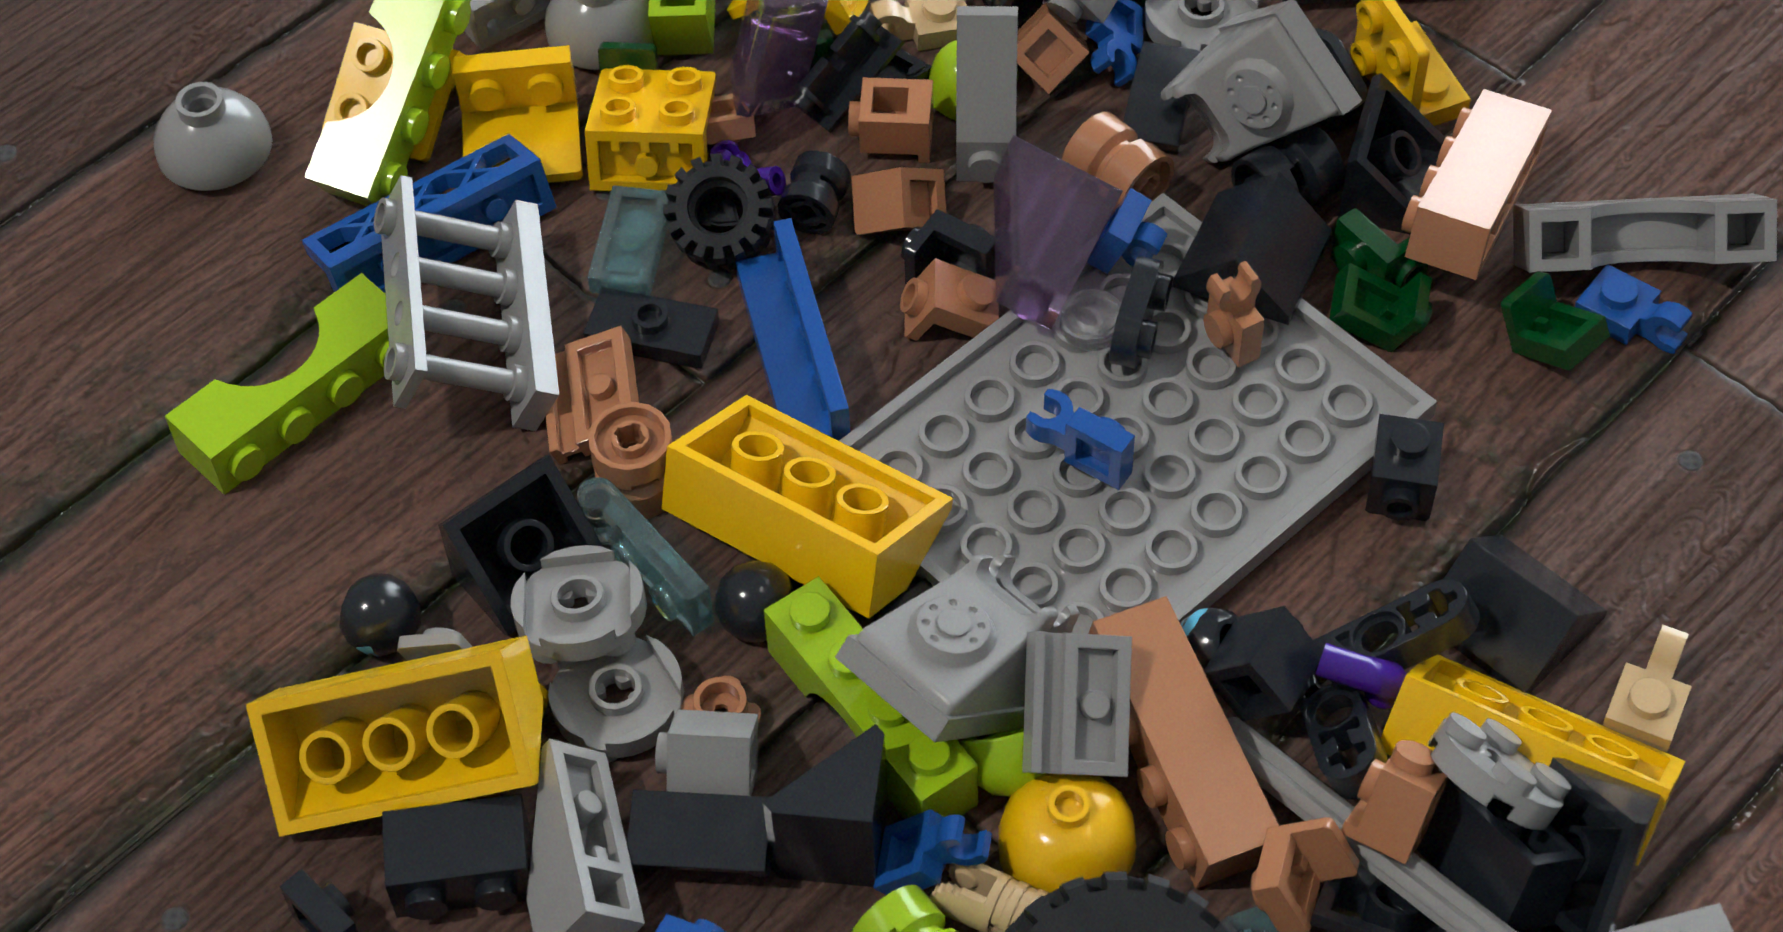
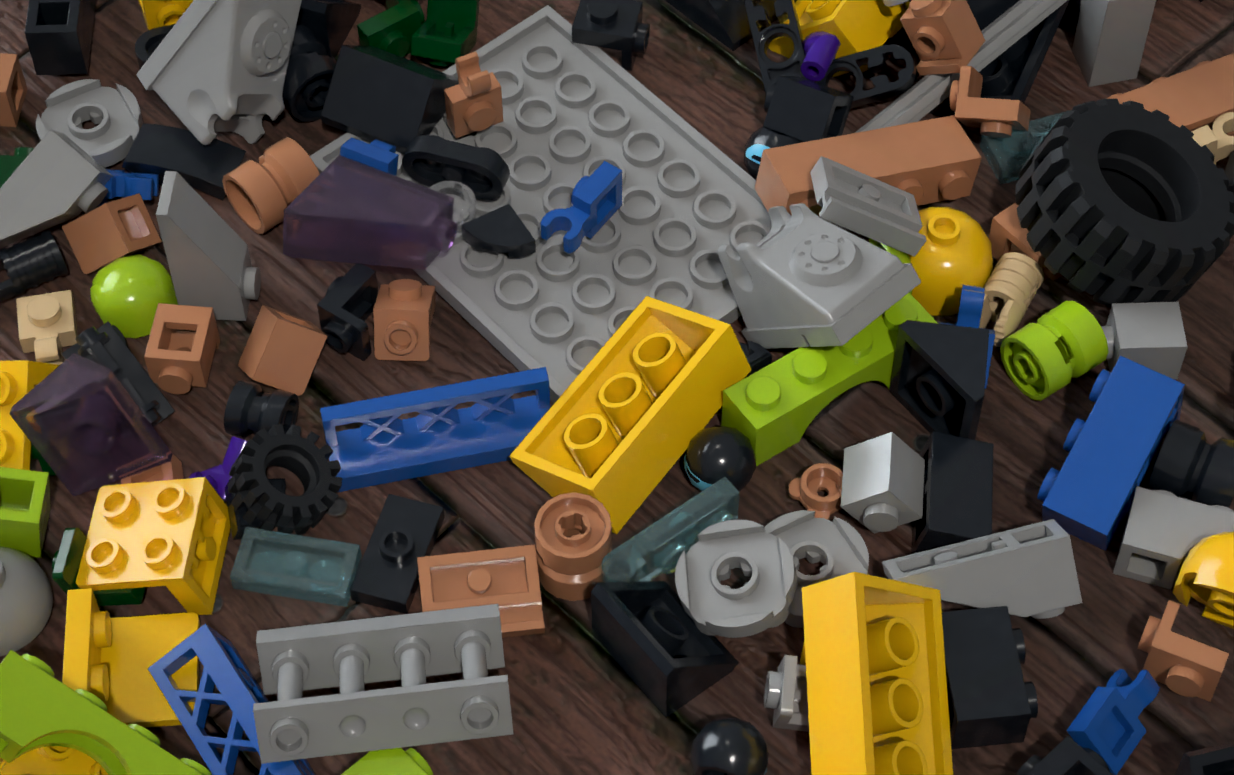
camera: 90 degrees left, 0 degrees up
(1055, 366) = (500, 232): none -> black tile

